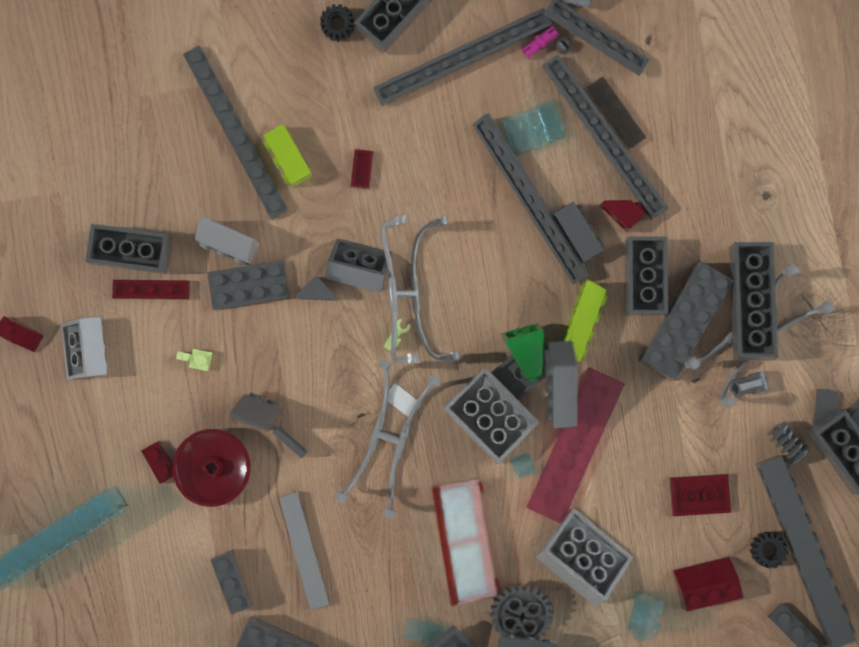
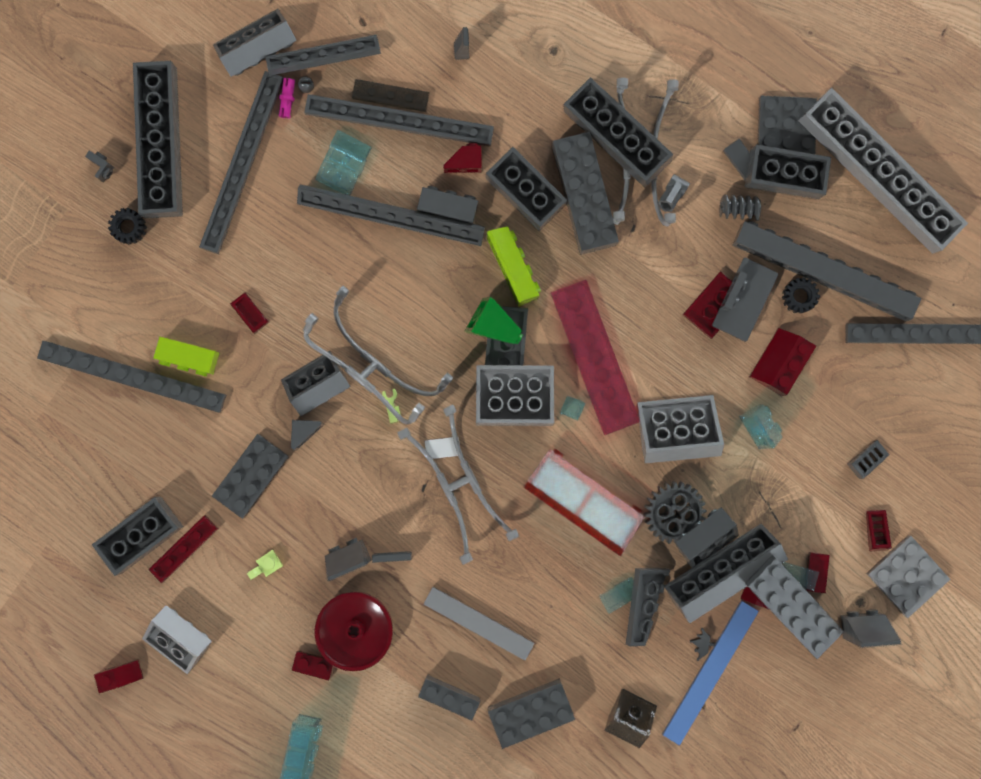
camera: 50 degrees left, 0 degrees up
(226, 241) = (202, 460): light grey slope -> none
(562, 384) = (542, 322): dark grey brick -> none
(703, 127) = (461, 45): none -> dark grey slope
(725, 512) = (745, 299): none -> dark grey bracket

